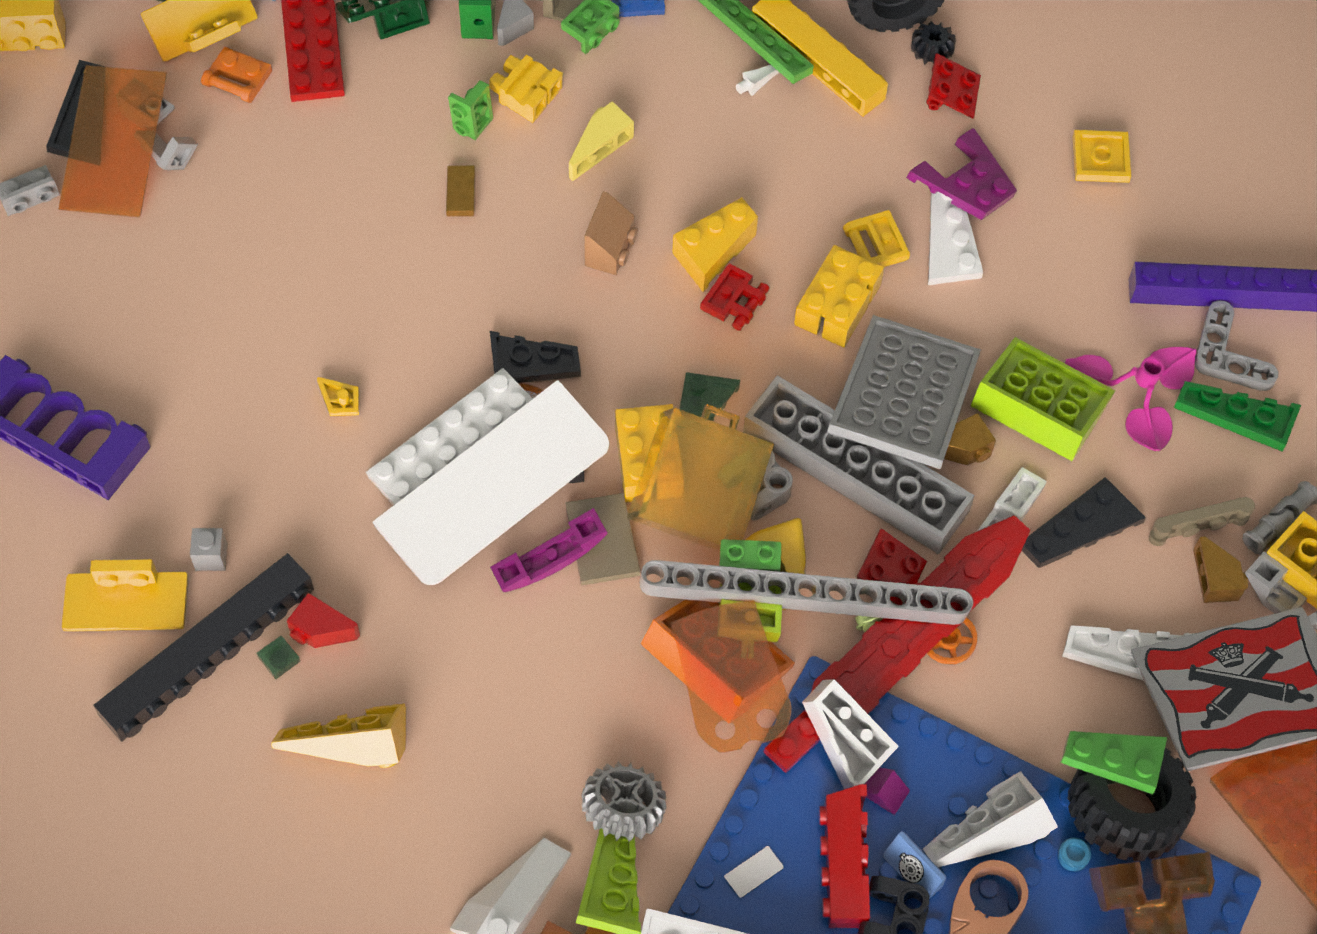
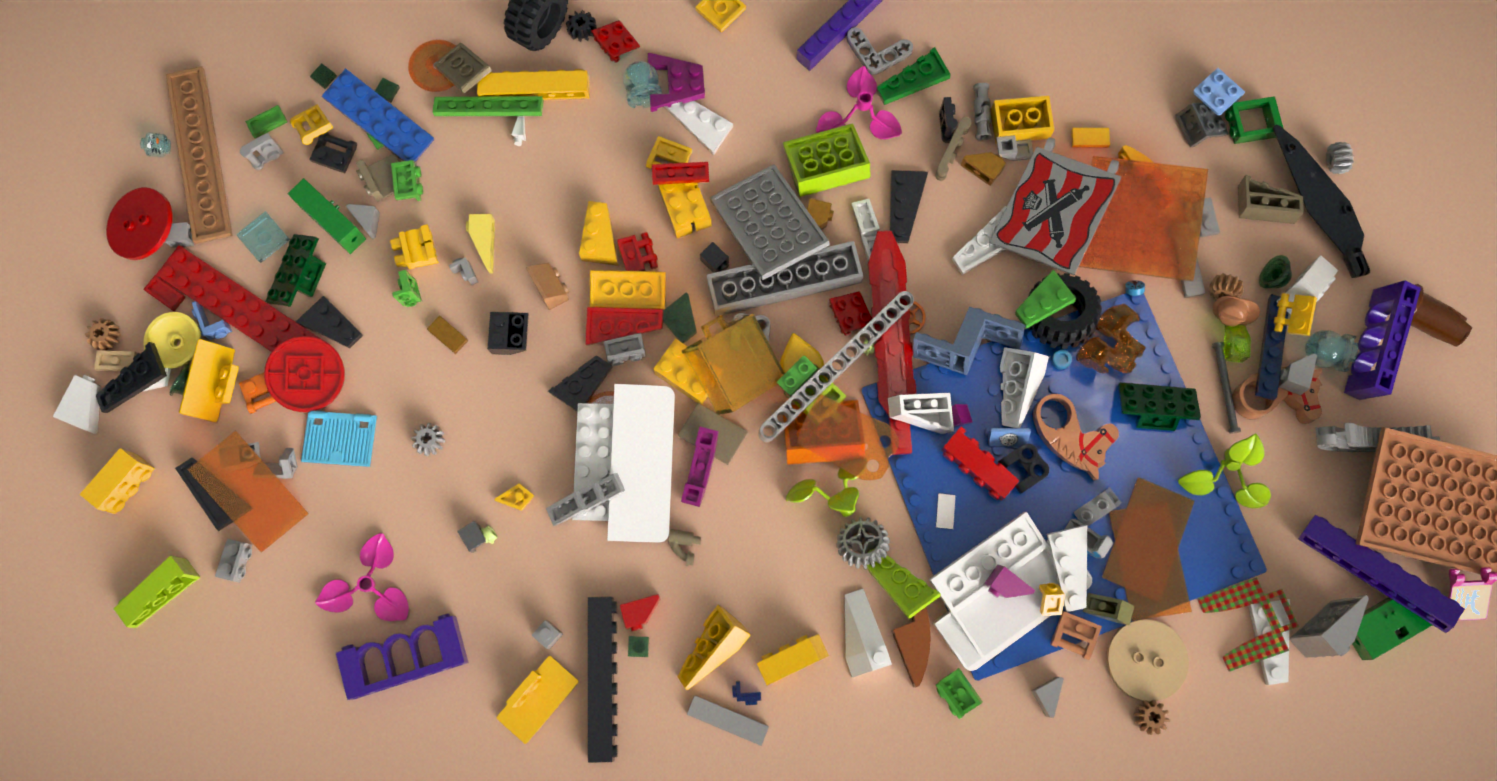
camera: 45 degrees left, 15 degrees up
(110, 373) = (390, 607): none -> dark pink plant
(249, 184) = (339, 439): none -> medium azure window
(254, 385) = (472, 536): none -> dark grey panel
(272, 403) = (489, 534): none -> yellowish green plate
(274, 827) = (728, 720): none -> light grey tile
(289, 93) = (304, 374): none -> red plate
(321, 825) = (749, 698): none -> clear blue bracket
(325, 261) = (432, 444): none -> light grey gear
(368, 76) = (330, 322): none -> black wing
(398, 460) = (585, 499): none -> light grey slope
(412, 834) = (792, 658): none -> yellow wedge
(454, 610) = (683, 538): none -> dark tan plant
(515, 239) = (507, 332): none -> black slope
(549, 149) = (464, 267): none -> light grey bracket
(612, 370) = (624, 349): none -> light grey bracket
(635, 339) = (615, 323): none -> red wing
(647, 722) = (842, 501): none -> lime plant
(683, 319) = (627, 289): none -> yellow tile
(809, 373) = (714, 258): none -> black brick
(865, 255) = (680, 173): none -> red plate
(928, 140) = (641, 81): none -> clear light blue tile
(984, 718) = (974, 328): none -> sand blue bracket
(1230, 478) = (947, 122): none -> black plate
(1253, 869) = (1135, 287): none -> dark azure tile

